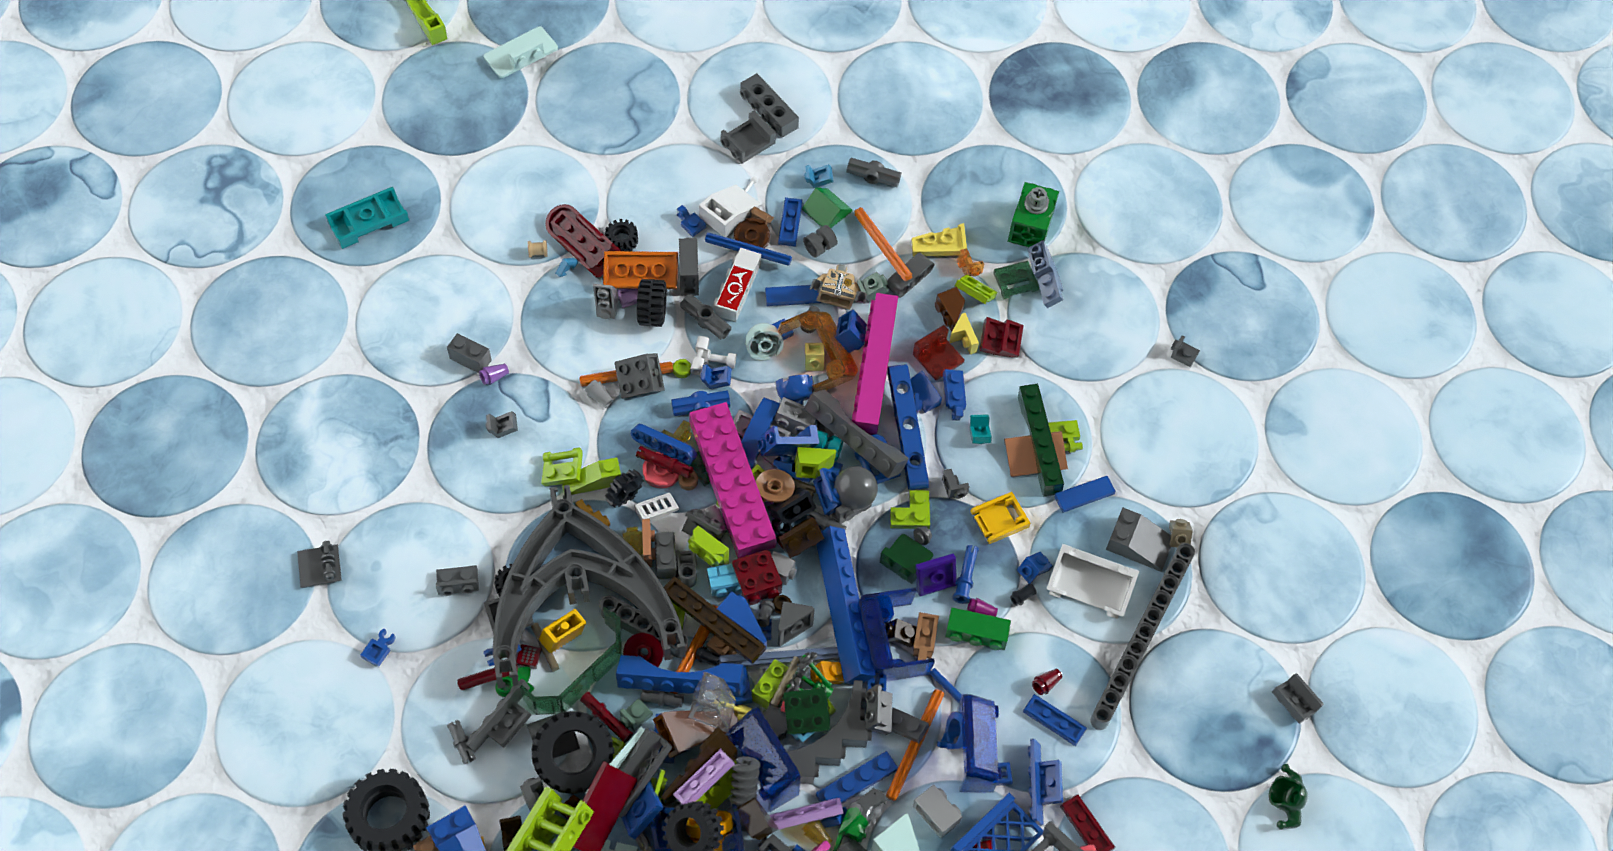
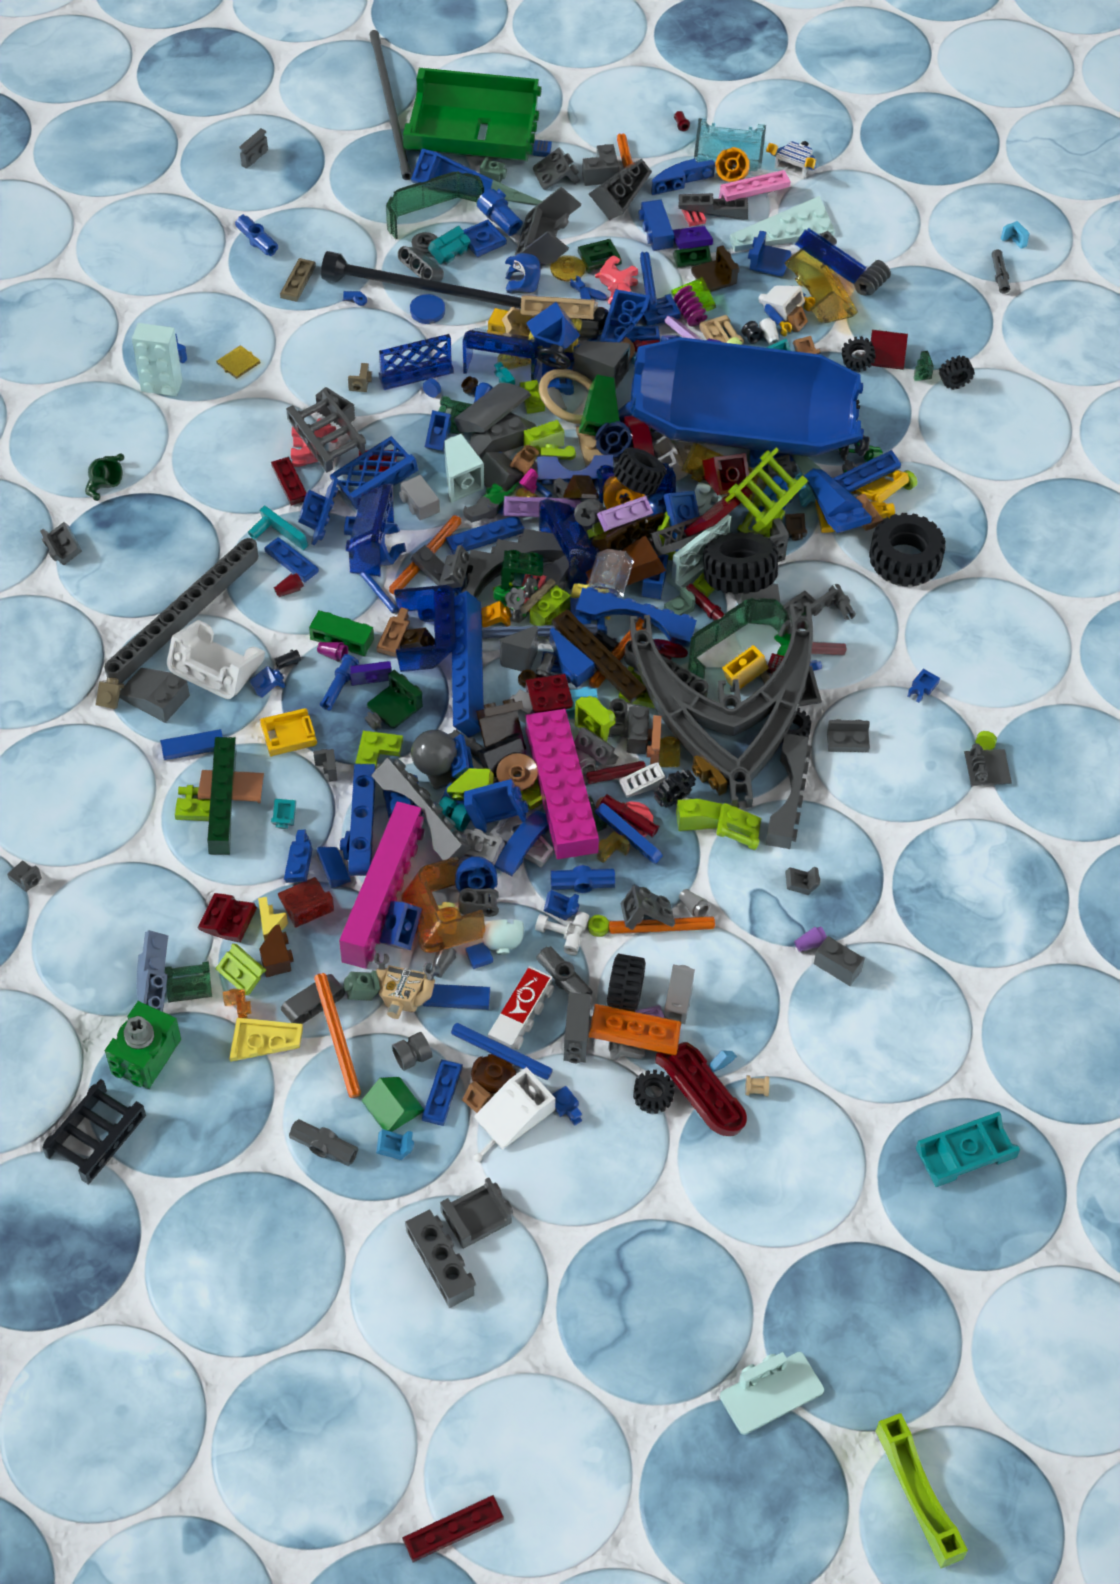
camera: 170 degrees left, 5 degrees down
(318, 591) = (986, 740): none -> lime tile
(521, 476) = (781, 824): none -> dark grey arch
(678, 516) = (614, 772): none -> dark red axle
(788, 368) = (479, 901): none -> dark grey piece
(1038, 149) = (104, 1149): none -> black fence
(1075, 753) = (271, 519): none -> teal piece

